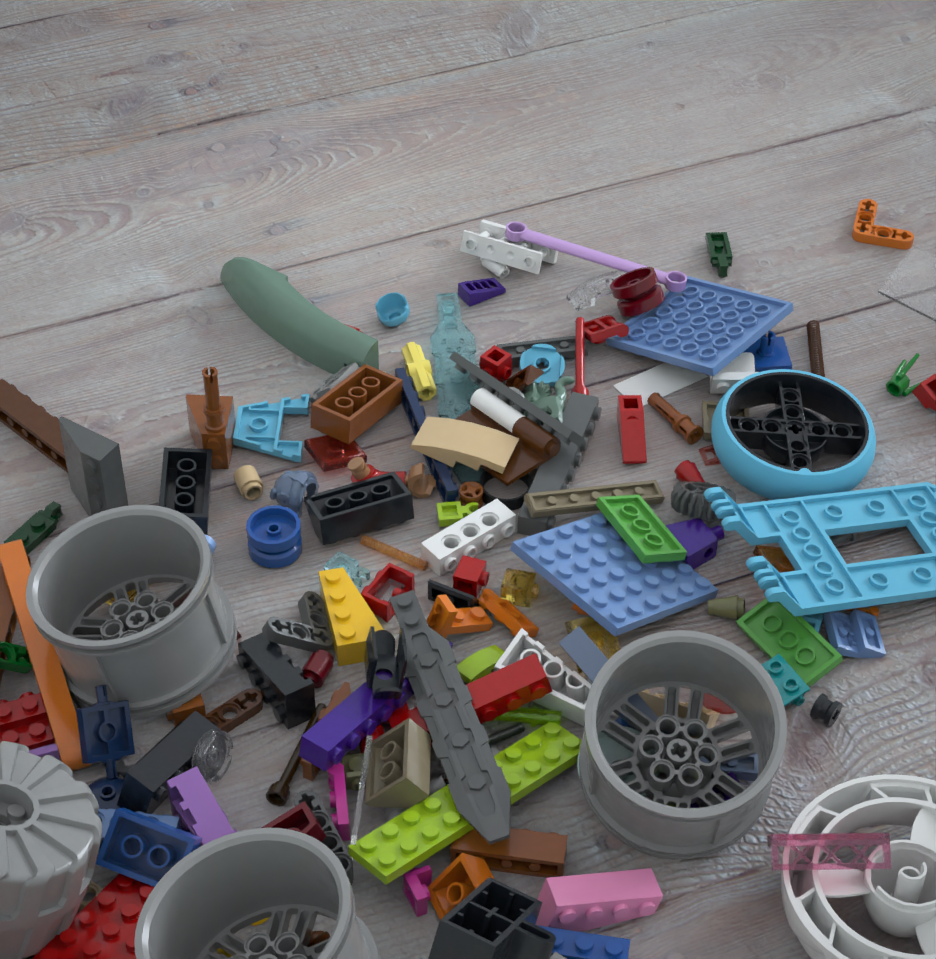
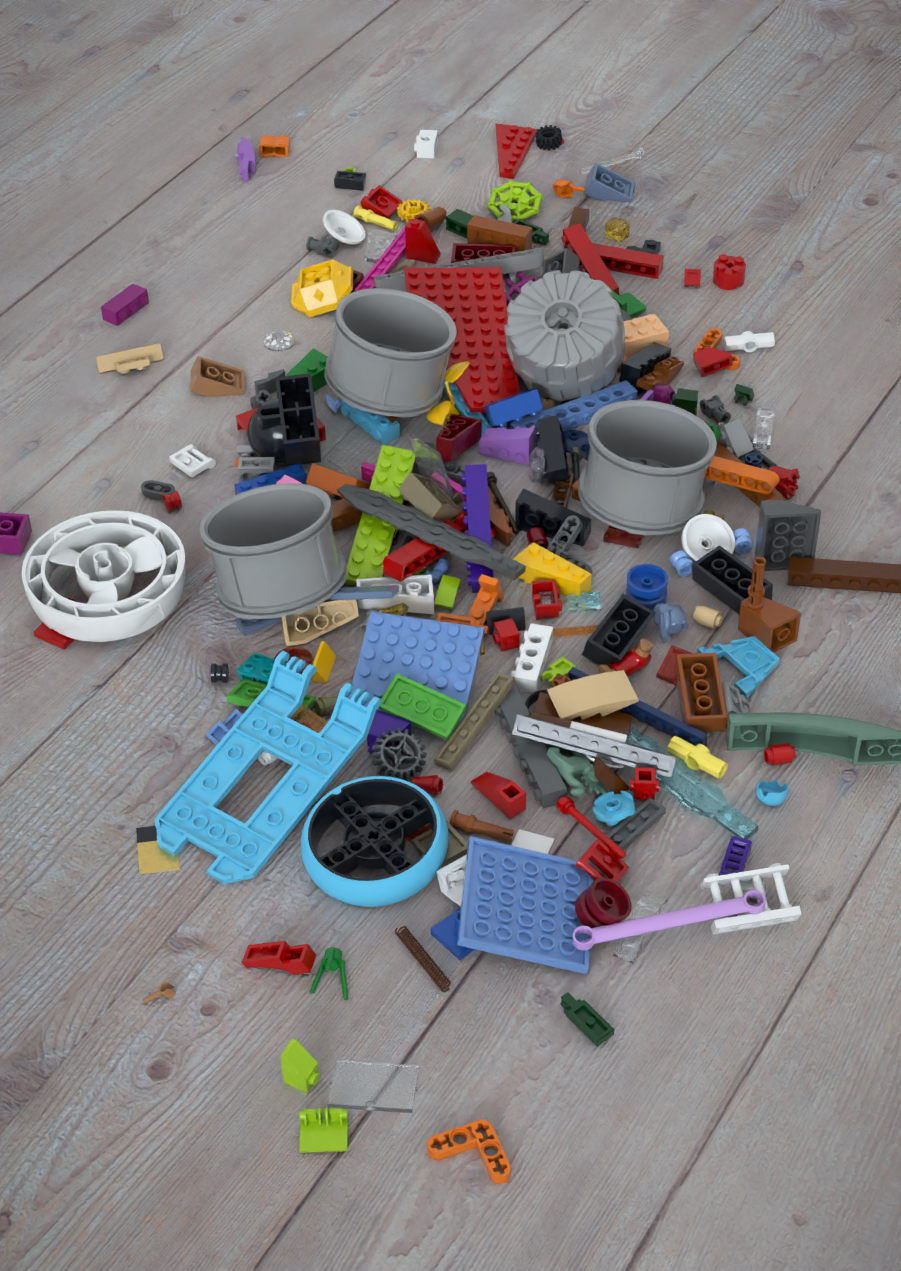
camera: 145 degrees right, 0 degrees up
(381, 657) = (479, 524): black piece -> none
(826, 840) = (155, 545): clear pink fence -> none

